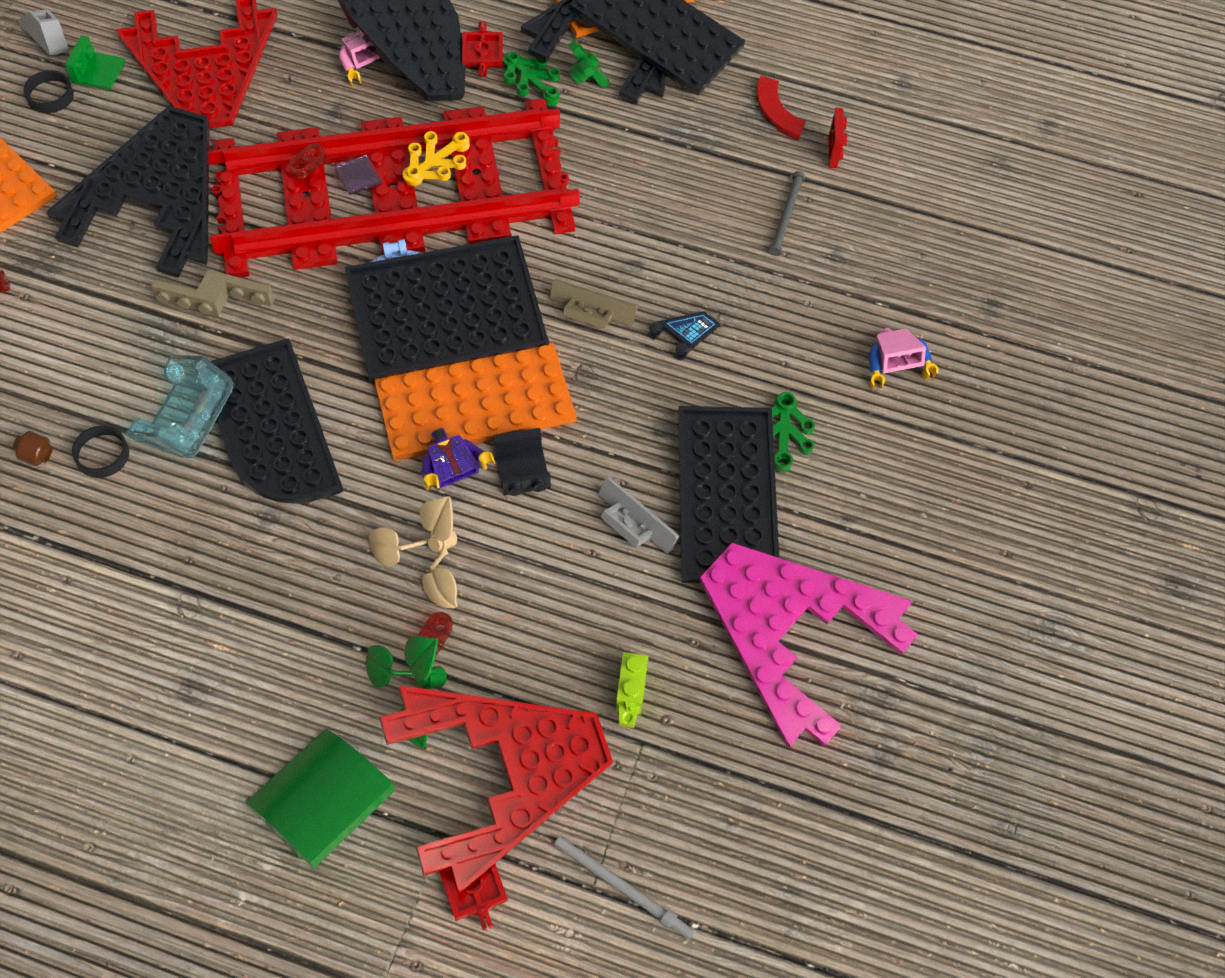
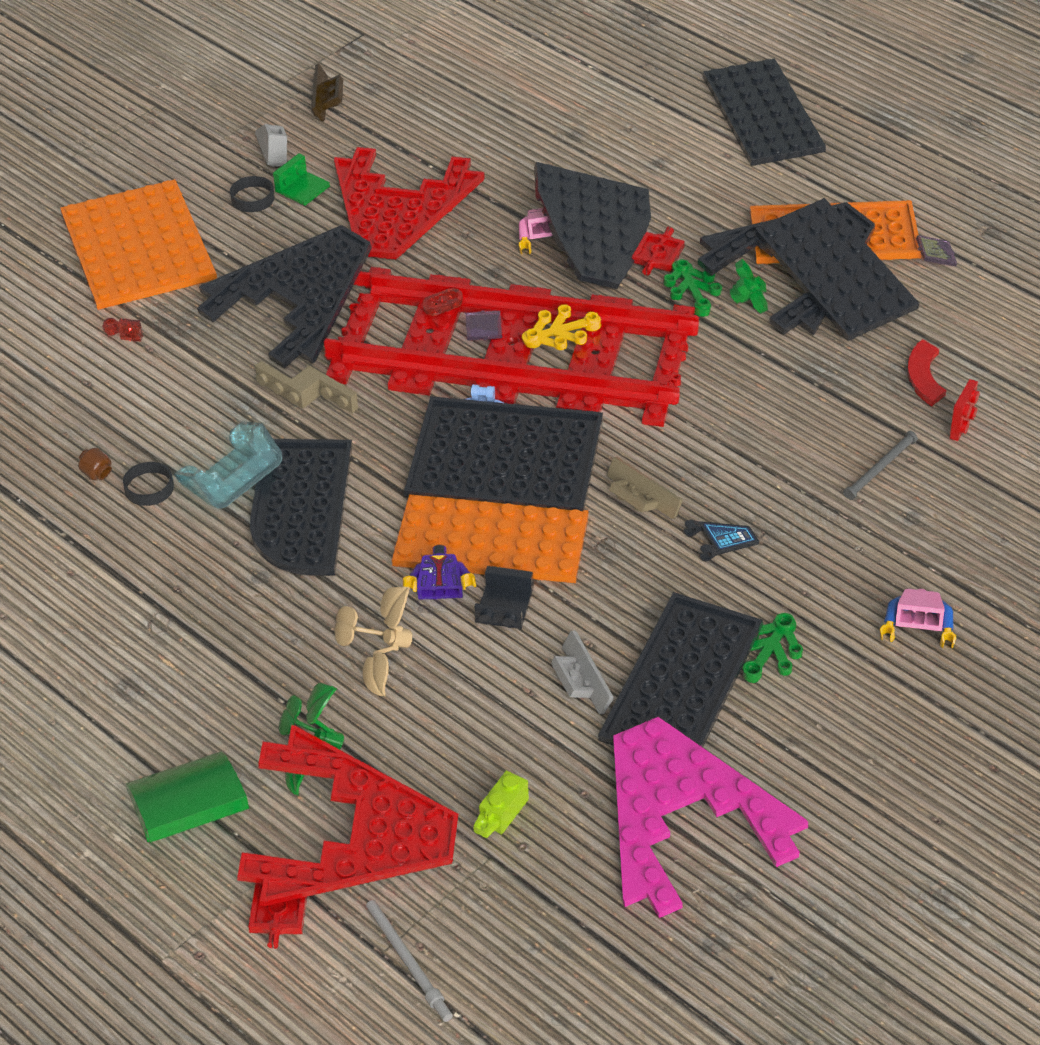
camera: 30 degrees right, 15 degrees down
(429, 629) = (348, 710): clear red plate -> none

